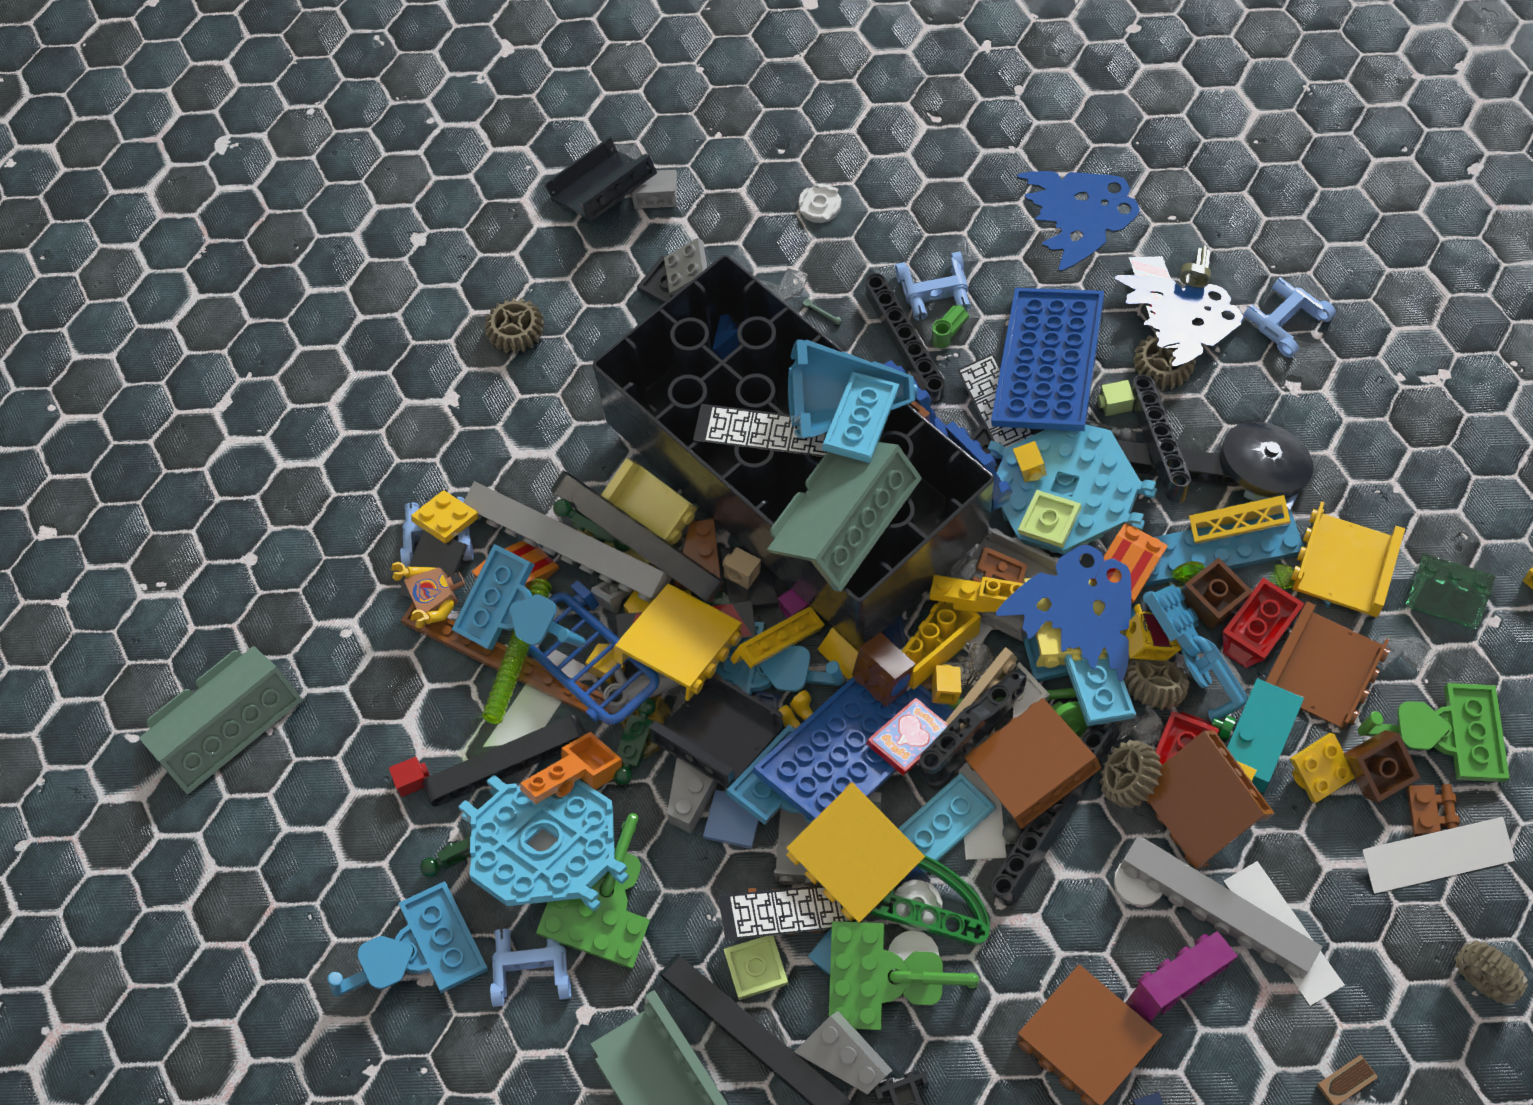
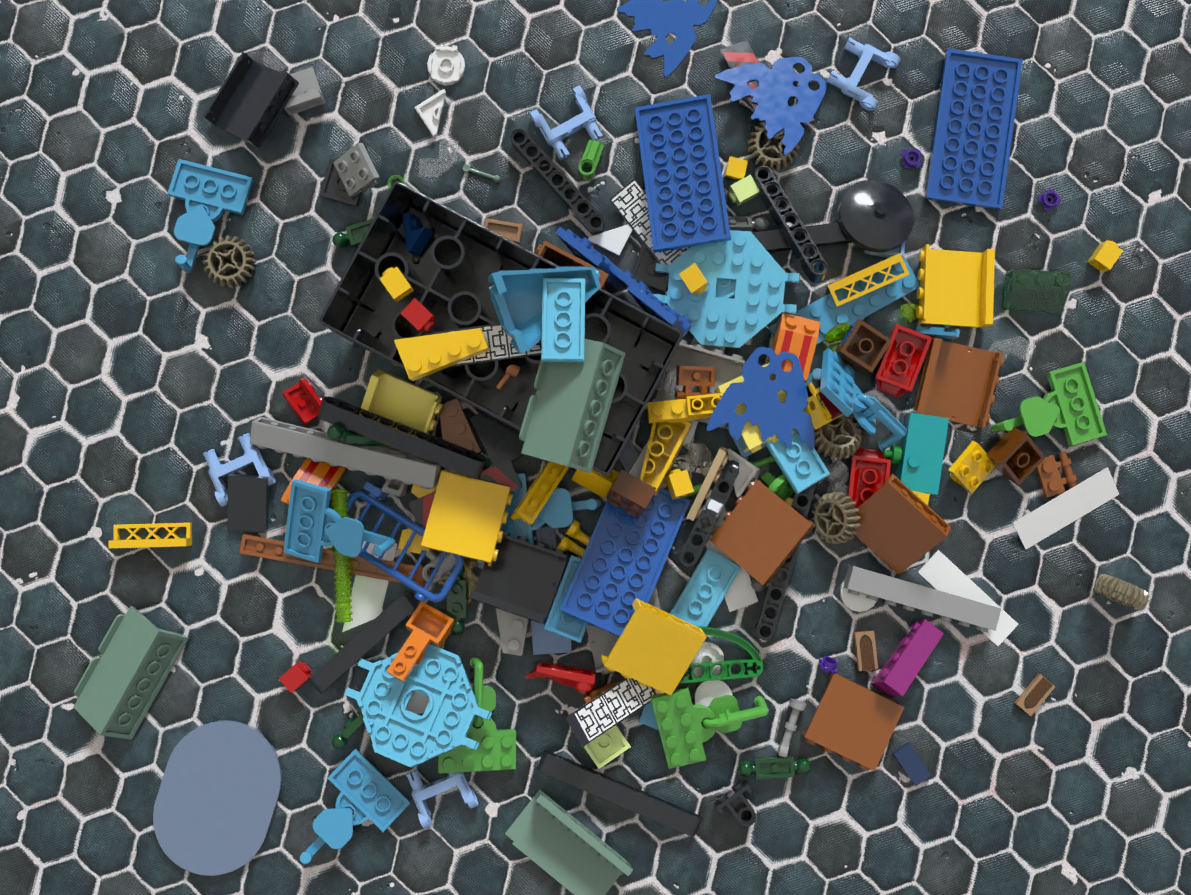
camera: 25 degrees left, 25 degrees up
(257, 894) = (217, 797): none -> sand blue tile
(310, 583) = (158, 542): none -> yellow fence
(430, 592) = (255, 528): torso -> none
(444, 516) = (240, 459): yellow plate -> none
(514, 258) = (205, 190): none -> dark azure plate
(537, 481) = (303, 401): none -> red bracket
(689, 345) = (396, 283): none -> yellow brick
(702, 380) = (418, 316): none -> red brick
(714, 420) = (438, 351): none -> yellow wedge
(732, 862) = (575, 677): none -> red slope
(741, 567) = (492, 434): tan brick -> none
(785, 461) = (513, 371): none -> dark orange hand
(788, 241) = (431, 111): none -> white tile
(844, 1054) = (687, 788): light grey wedge -> none
(907, 736) = (665, 539): tile -> none
(952, 410) = (612, 240): none -> white tile
(968, 1068) = (774, 767): none -> dark green plate
(1019, 997) = (790, 726): none -> light grey piece
(1049, 518) = (723, 326): yellowish green plate -> none
(1075, 956) = (828, 665): none -> dark purple plate
(1114, 373) = (736, 168): none -> yellow tile
(1130, 956) = (866, 650): none -> tile
(1199, 271) = (782, 52): olive piece -> none
(1324, 606) = (937, 332): none -> dark azure tile
(1327, 410) = (915, 154): none -> dark purple plate
(1408, 404) = (973, 129): none -> blue plate
(1491, 495) = (1054, 199): none -> dark purple plate

